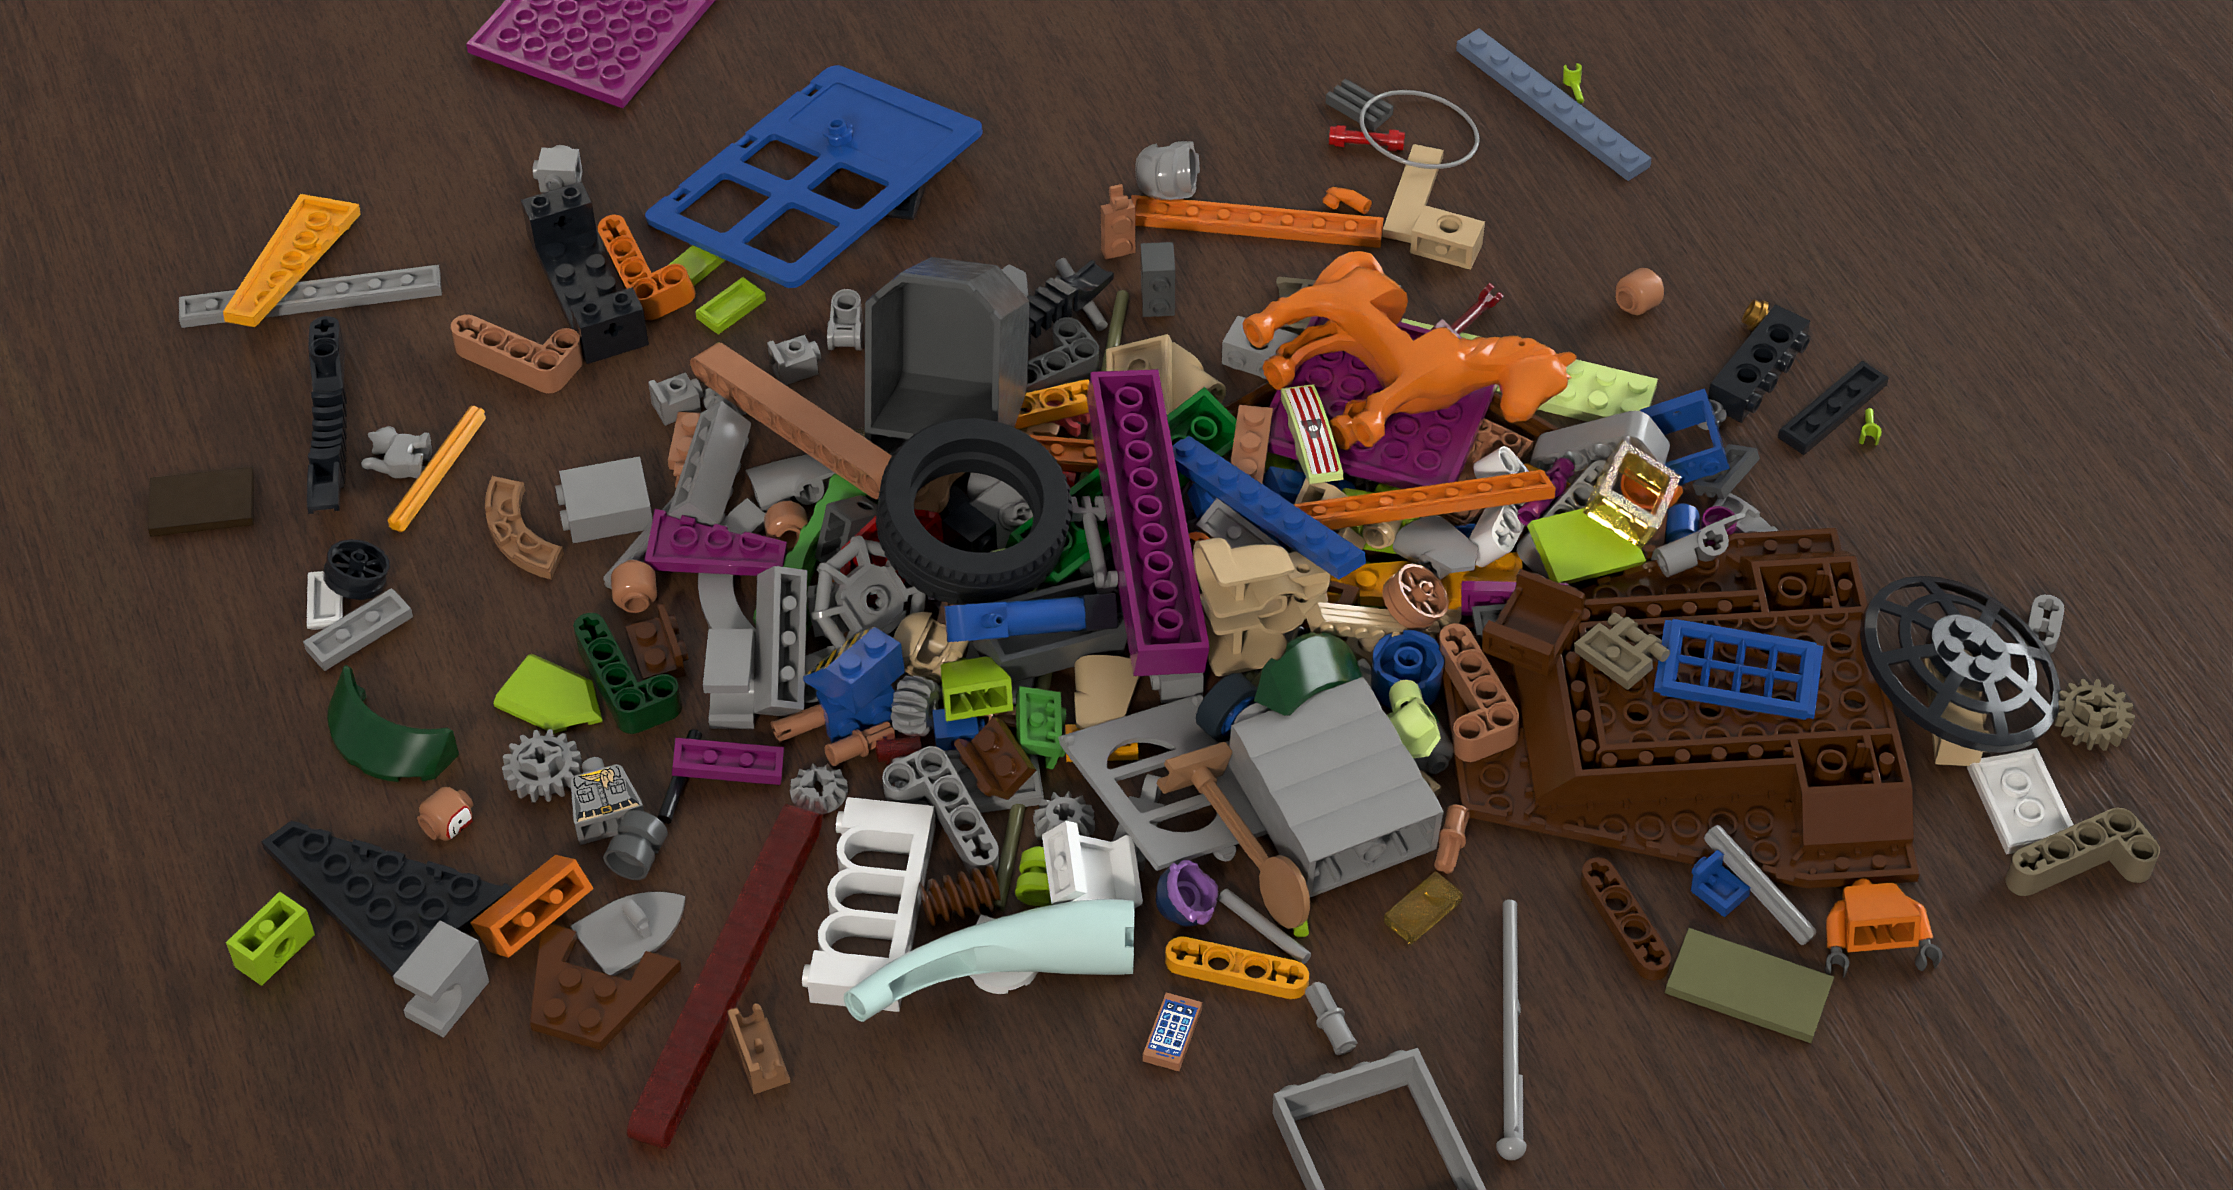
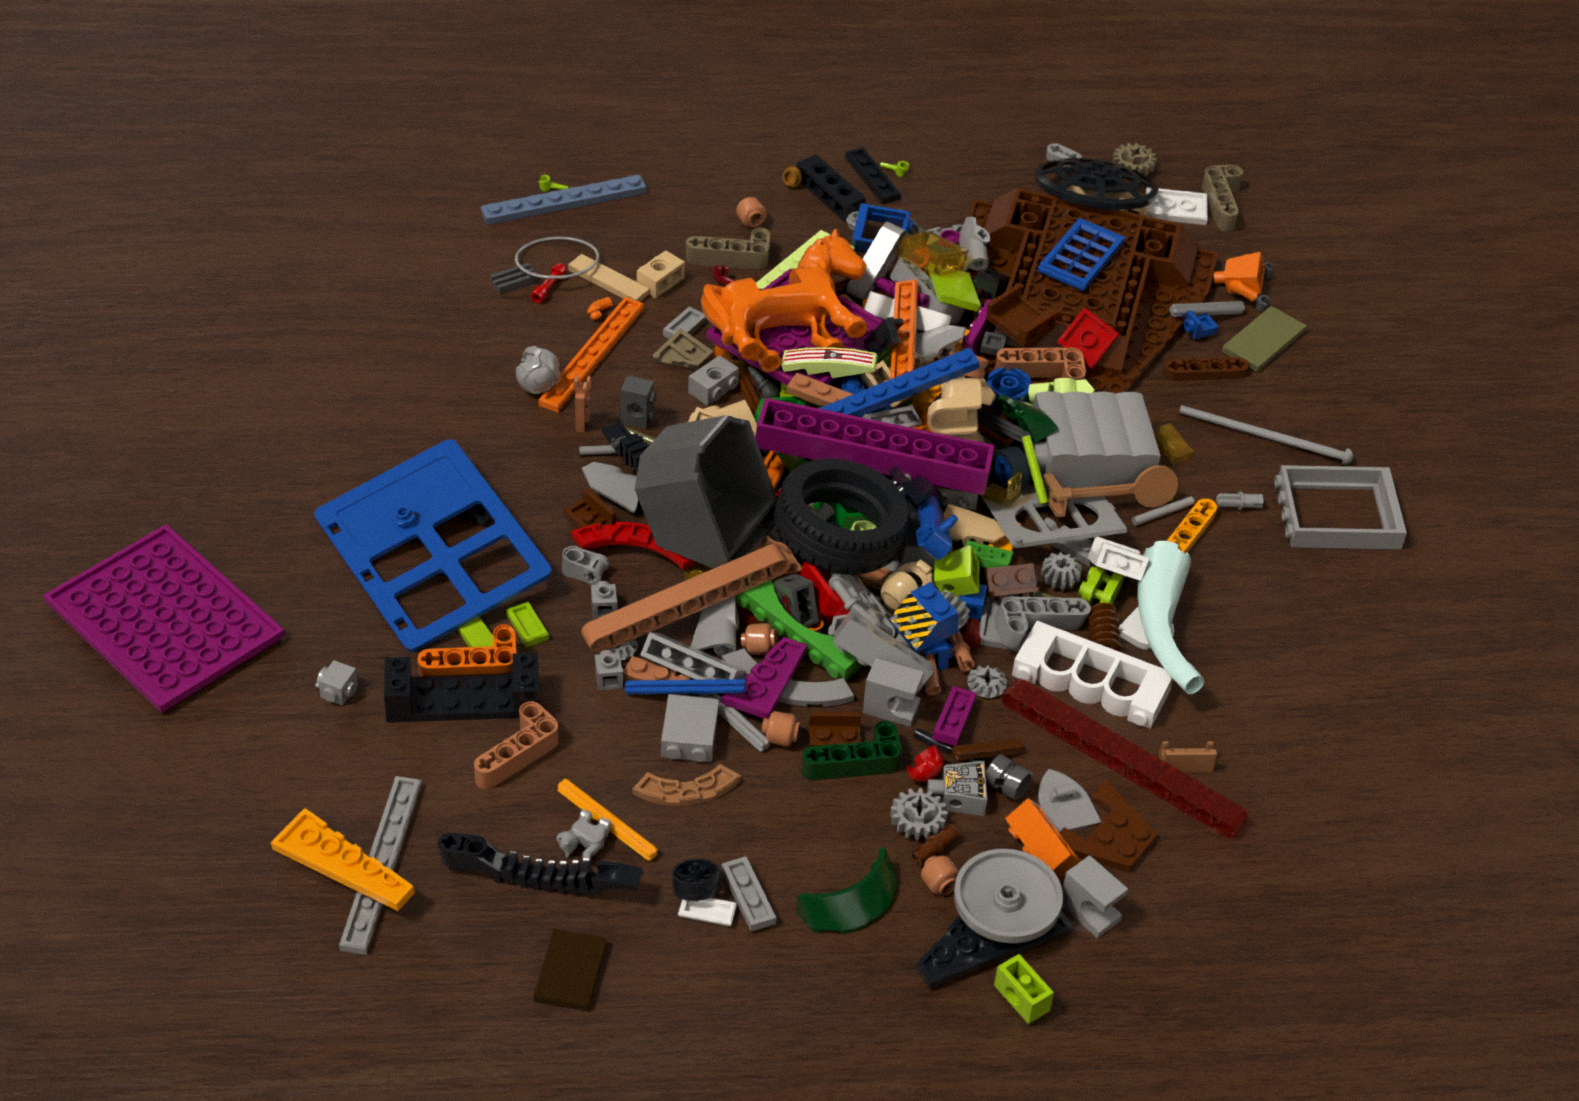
camera: 75 degrees left, 5 degrees down
(401, 876) = (1008, 895): none -> light grey dish
(498, 796) = (934, 844): none -> reddish brown pin
(548, 696) = (851, 802): lime tile -> none
(628, 753) = (928, 765): none -> red hair
(663, 471) = (706, 686): none -> blue axle
(680, 812) = (987, 749): none -> reddish brown axle
(1068, 568) = (918, 489): none -> black bracket
(1172, 1031) = (1226, 569): tile -> none
(1180, 712) = (1003, 495): none -> clear yellow bracket
(1186, 894) = (1141, 532): medium lavender hair -> none
(1226, 716) = (1035, 470): none -> lime bar
(1380, 474) = (884, 338): none -> black bracket
(1551, 318) = (730, 252): none -> dark tan beam
(1552, 725) = (1089, 336): none -> red tile
(1615, 656) = (1058, 293): dark tan plate -> none
(1623, 579) = (991, 282): none -> black brick

